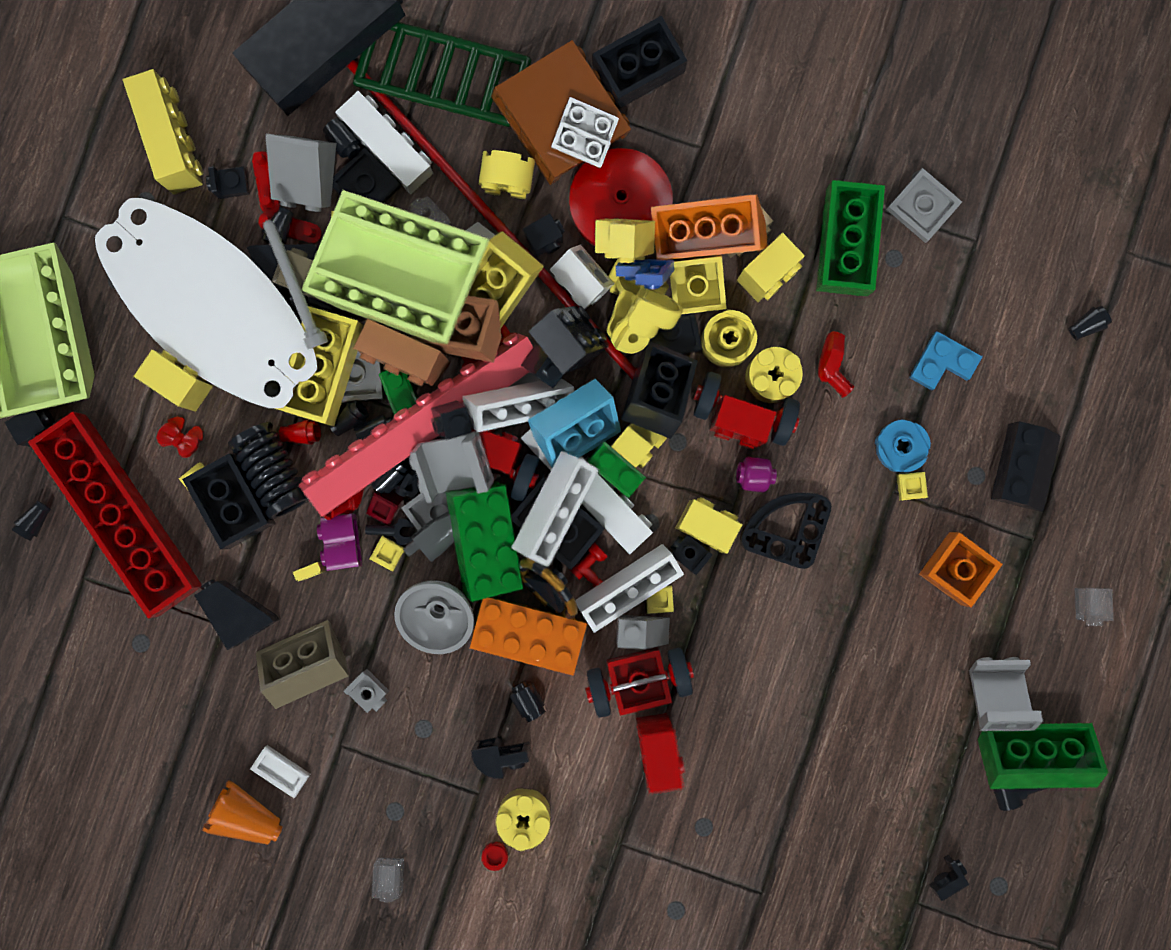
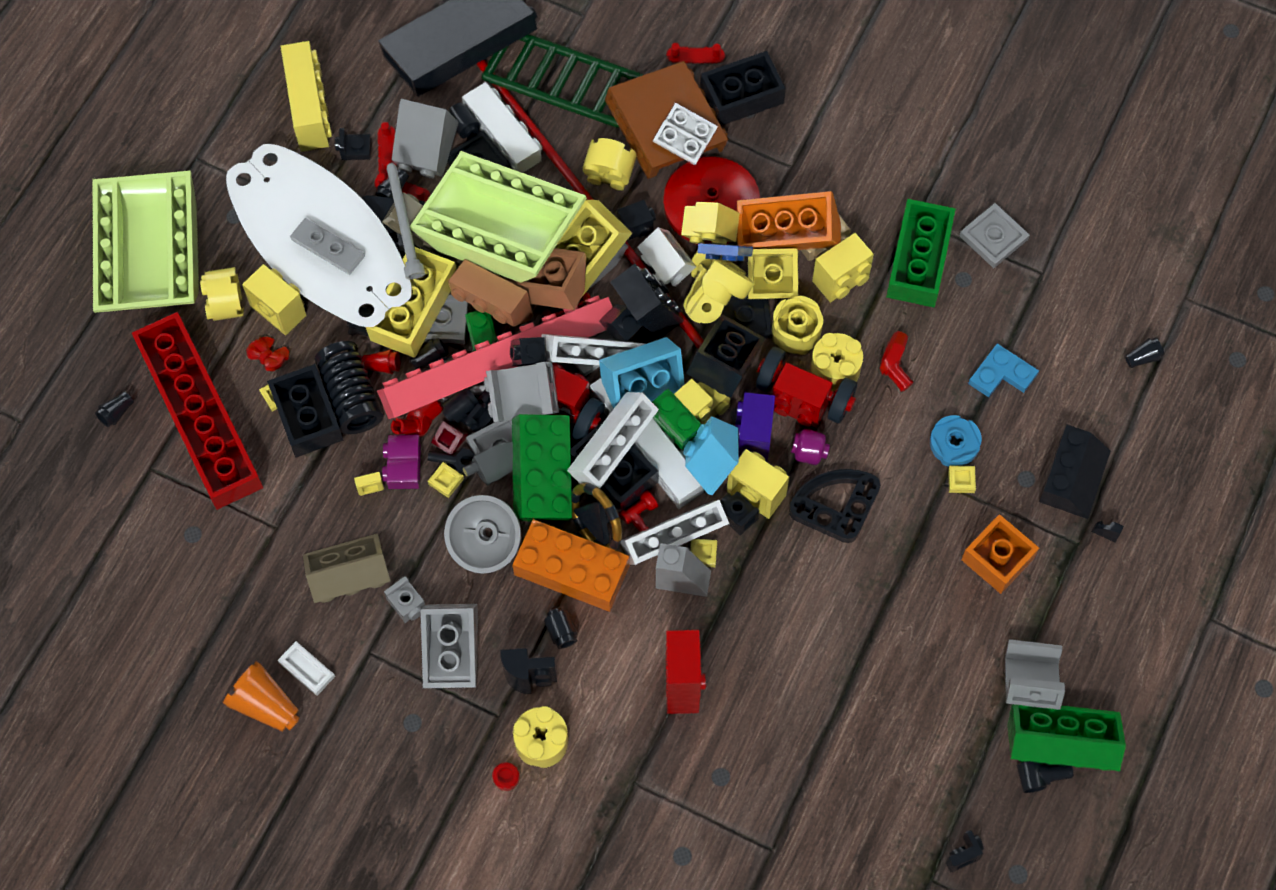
camera: 10 degrees right, 20 degrees down
(29, 425) = (128, 322): black brick -> none
(116, 381) = (223, 294): none -> light yellow brick
(217, 318) = (327, 246): none -> light grey plate
(233, 613) = (291, 513): black slope -> none
(387, 879) = (395, 781): clear brick -> none
(418, 731) = (449, 645): none -> light grey slope
(582, 23) = (706, 55): none -> red piece
(639, 681) = (671, 612): brick -> none
(660, 506) = (712, 453): none -> medium azure slope
(698, 463) = (755, 423): none -> dark purple brick
(1069, 527) = (1109, 532): none -> black tile
(1094, 605) = (1131, 606): clear brick -> none

